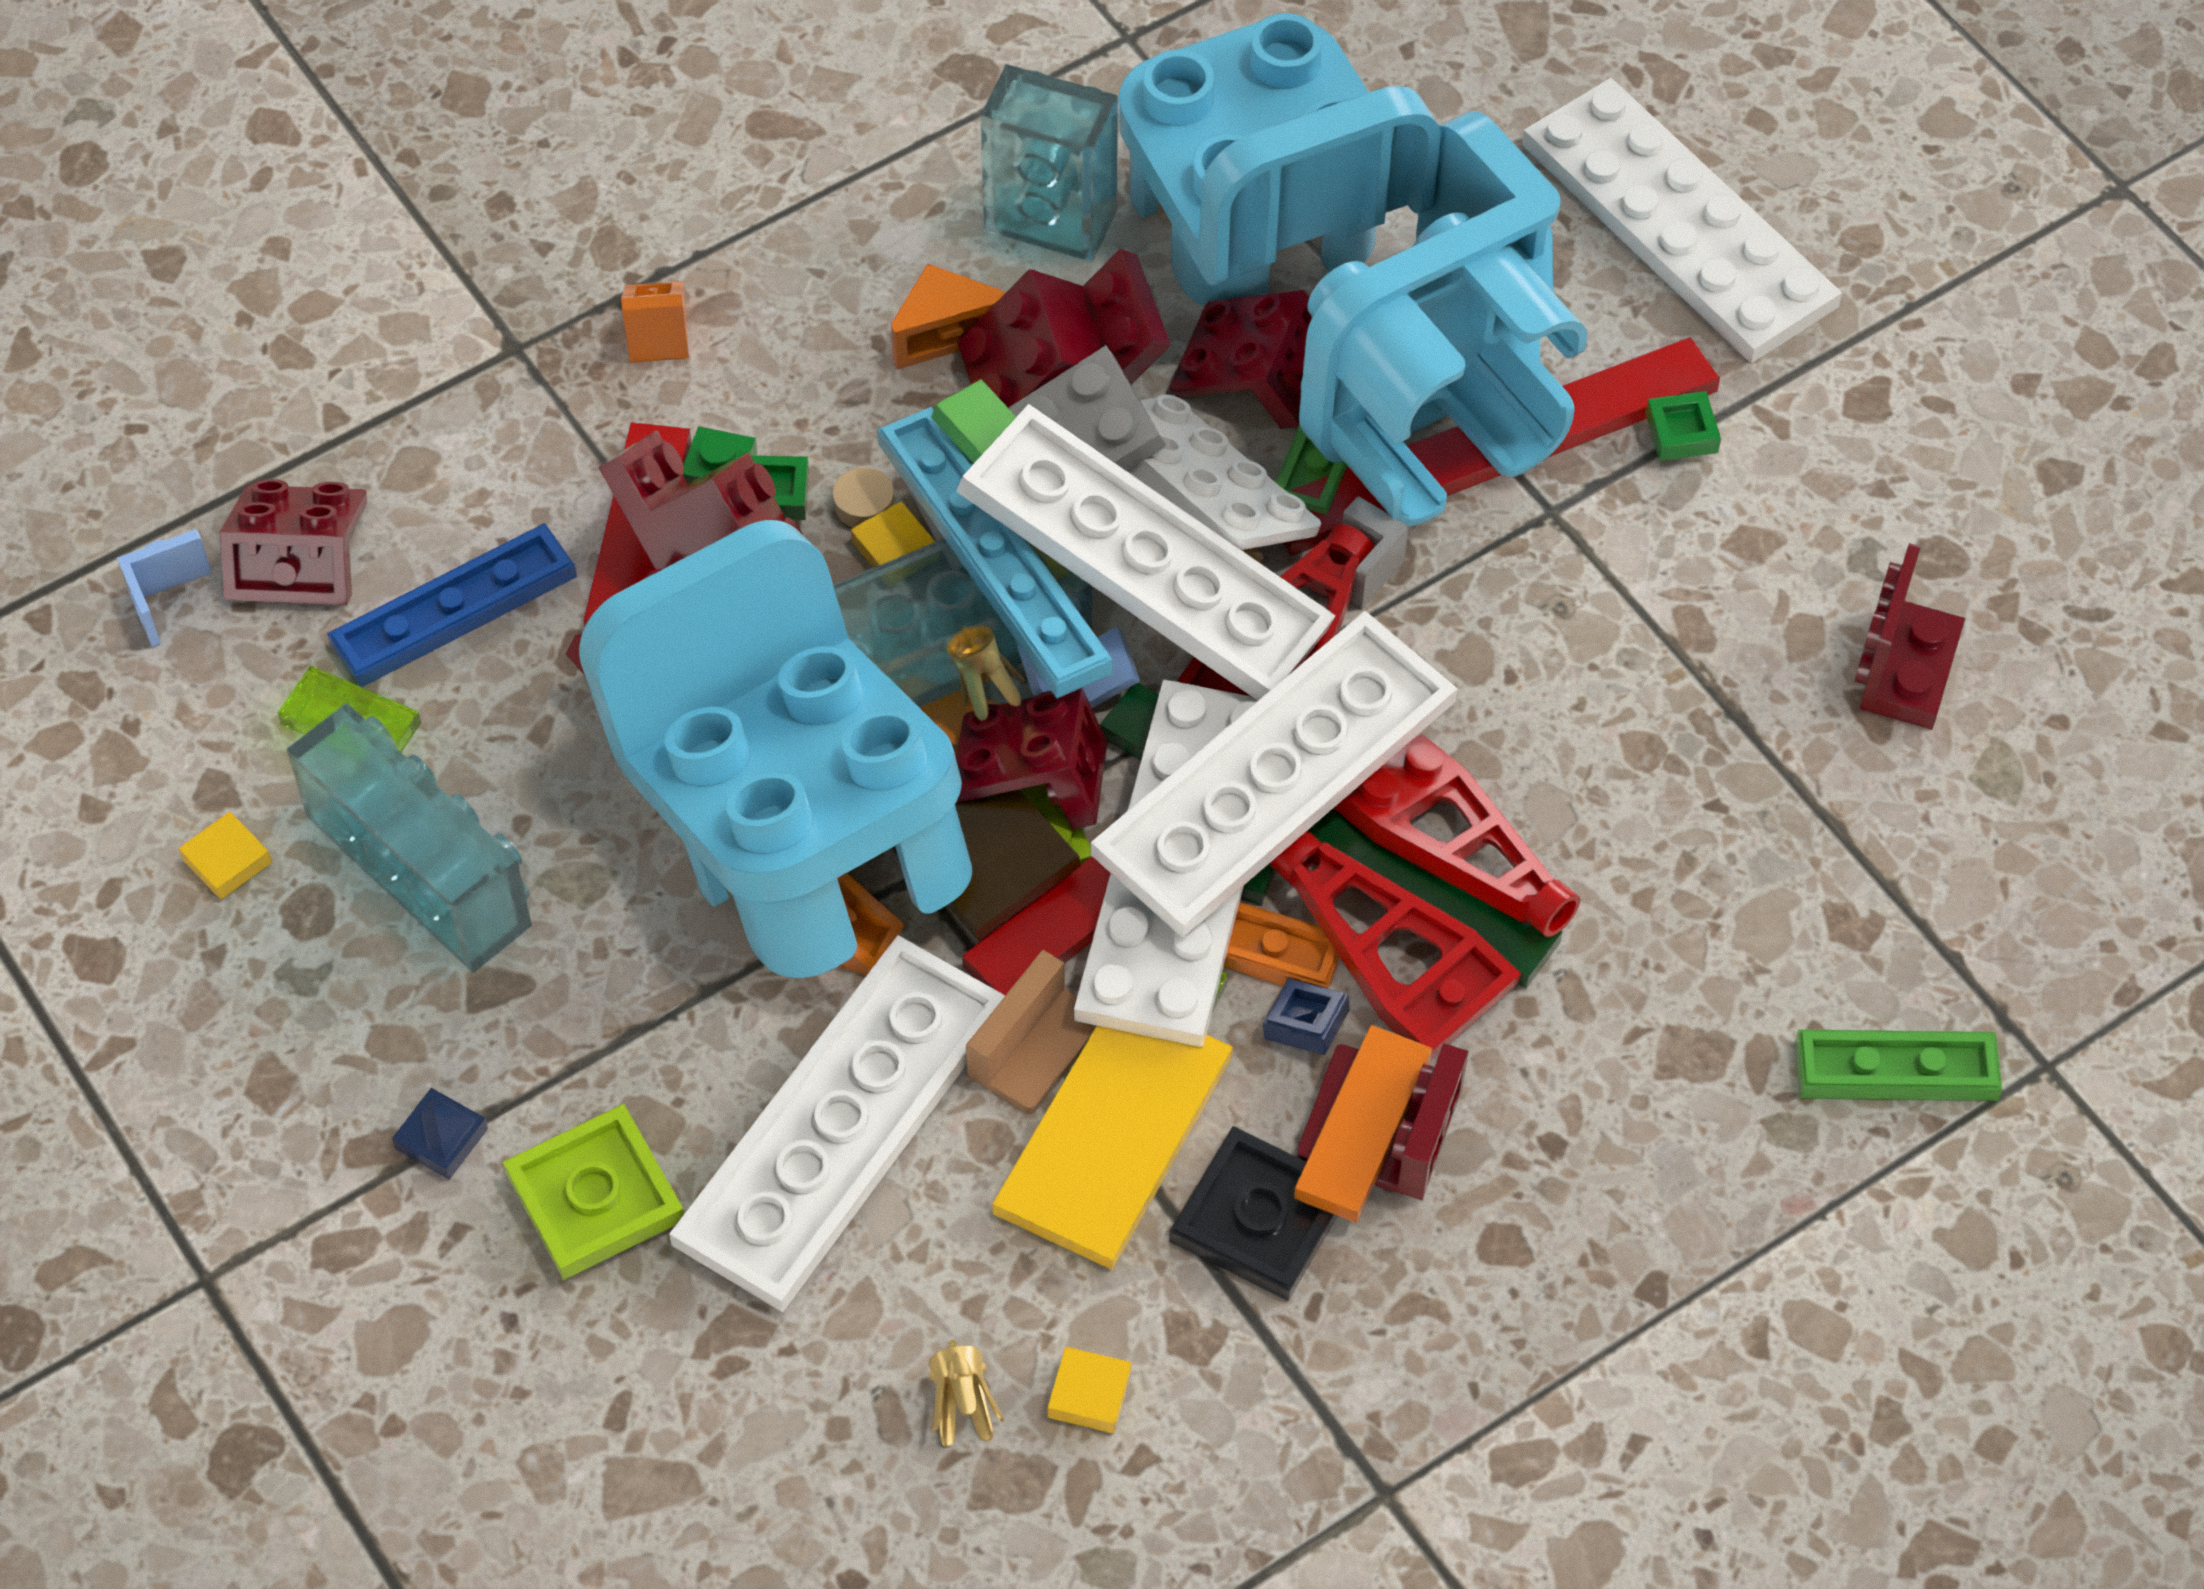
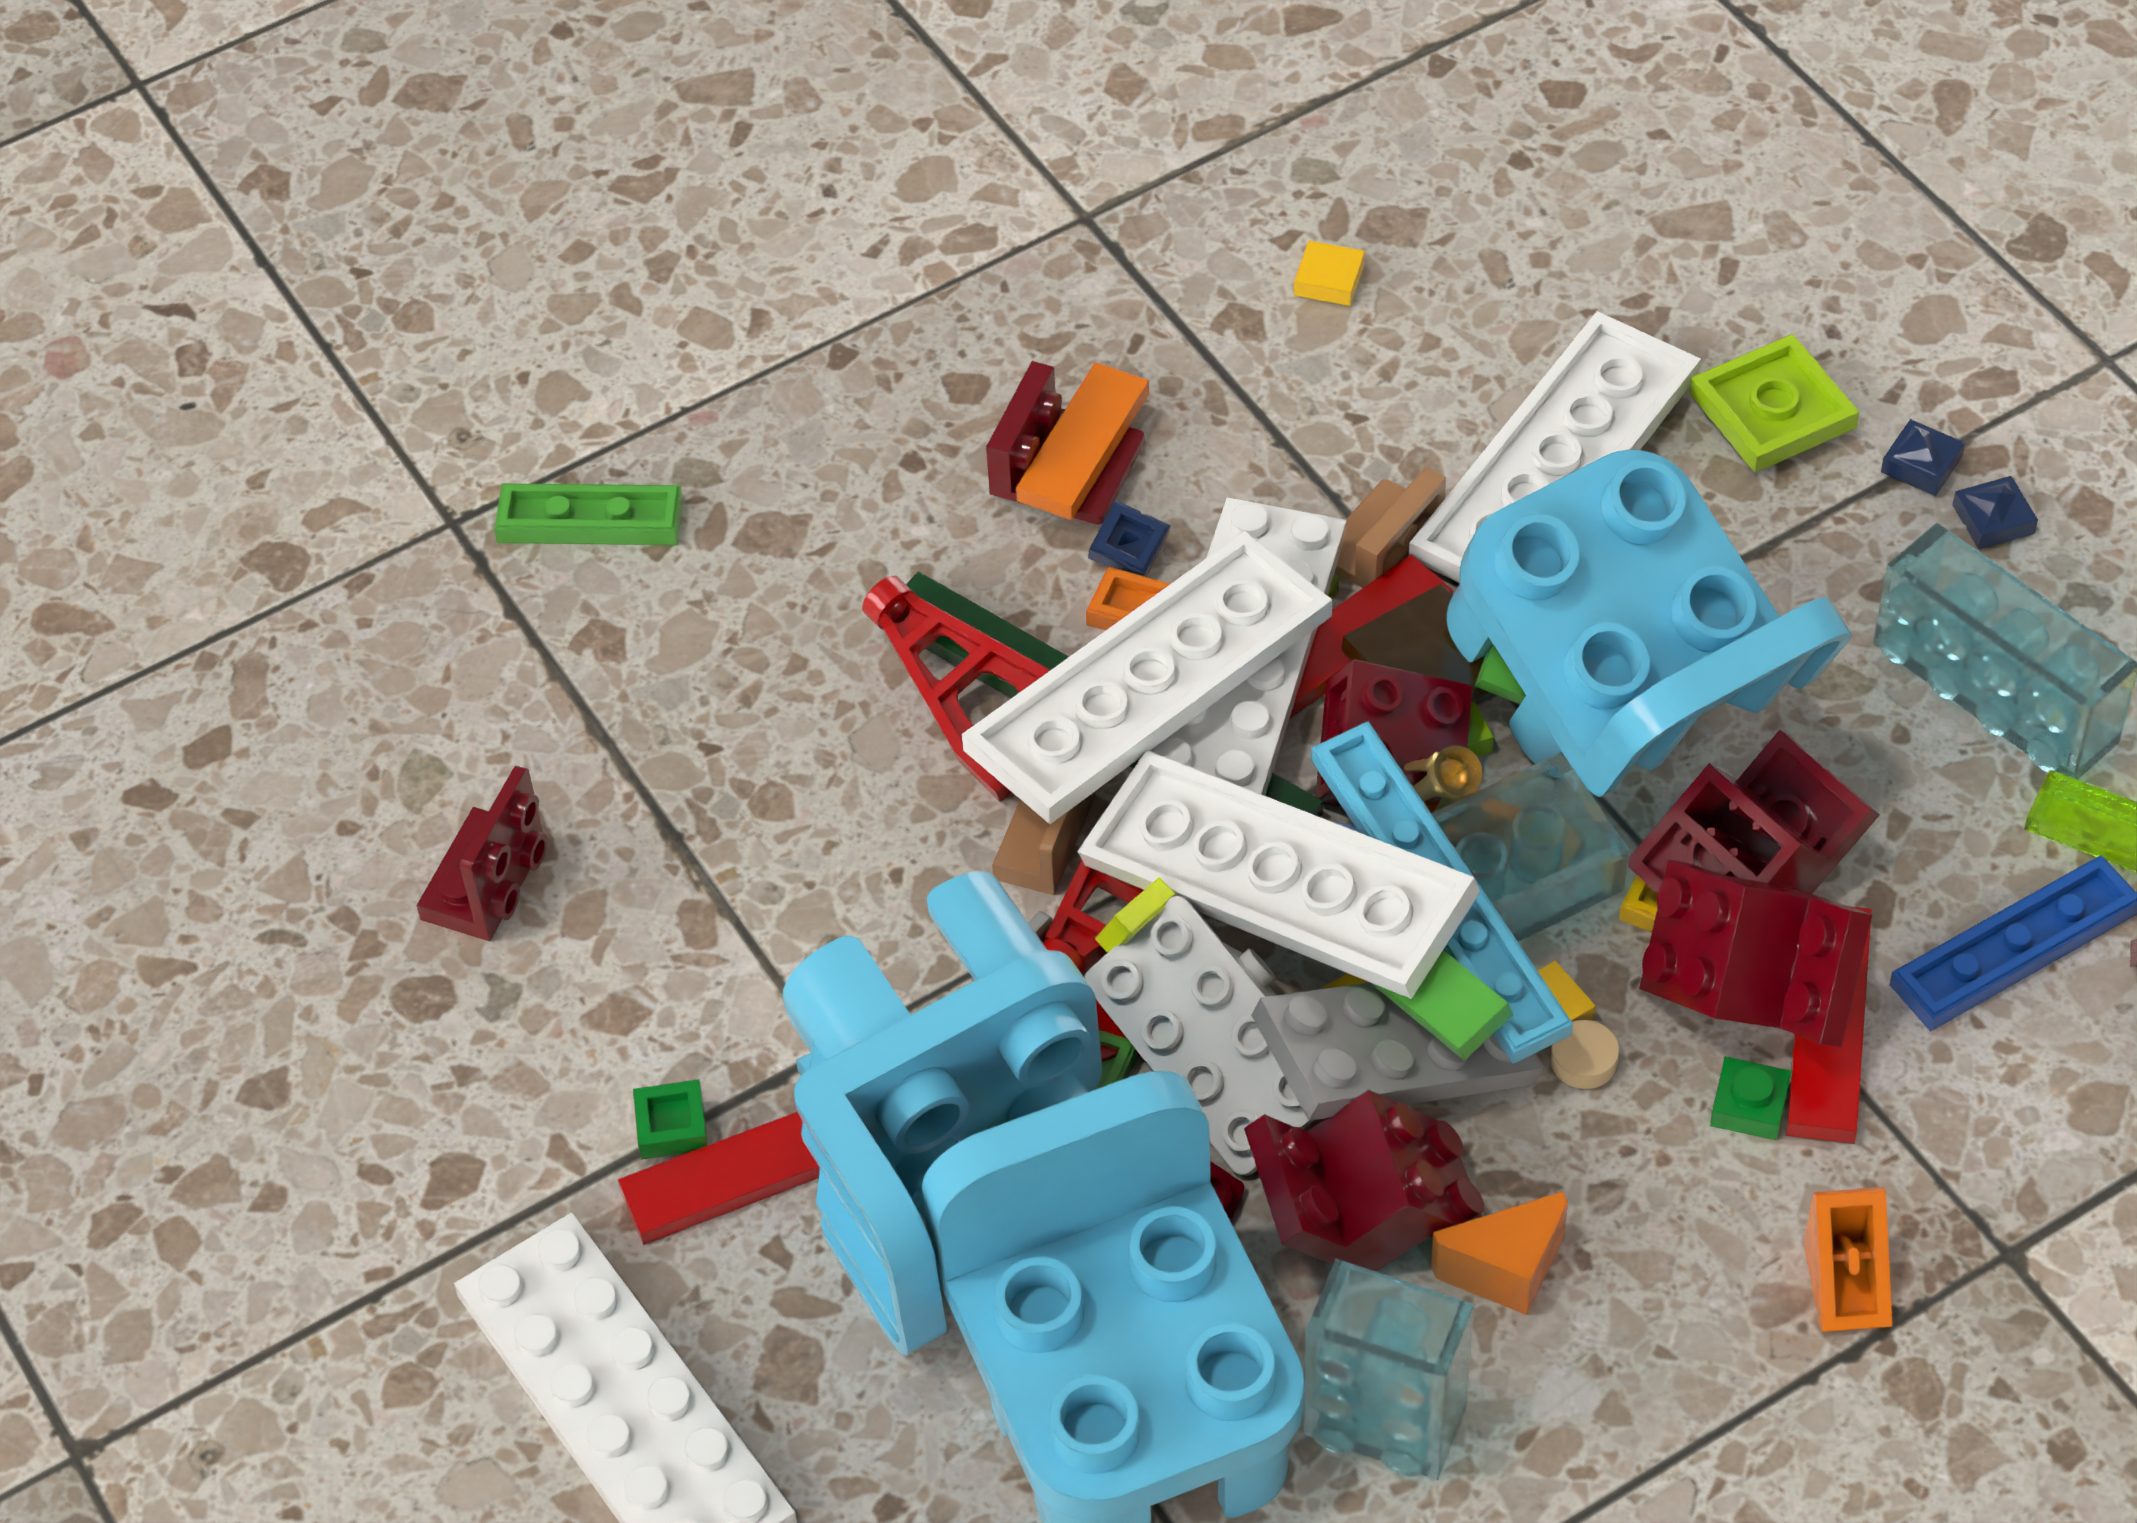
camera: 175 degrees left, 5 degrees down
(376, 1063) = (1995, 512): none -> dark blue tile
(790, 480) = (1682, 1053): green plate -> none
(961, 1381) = (1441, 271): pearl gold piece -> none
(1110, 1140) = (1316, 443): yellow tile -> none
(1248, 1215) = (1190, 400): black tile -> none
(1279, 543) = (1135, 915): none -> neon yellow tile
(1445, 997) = (1002, 549): red plate -> none

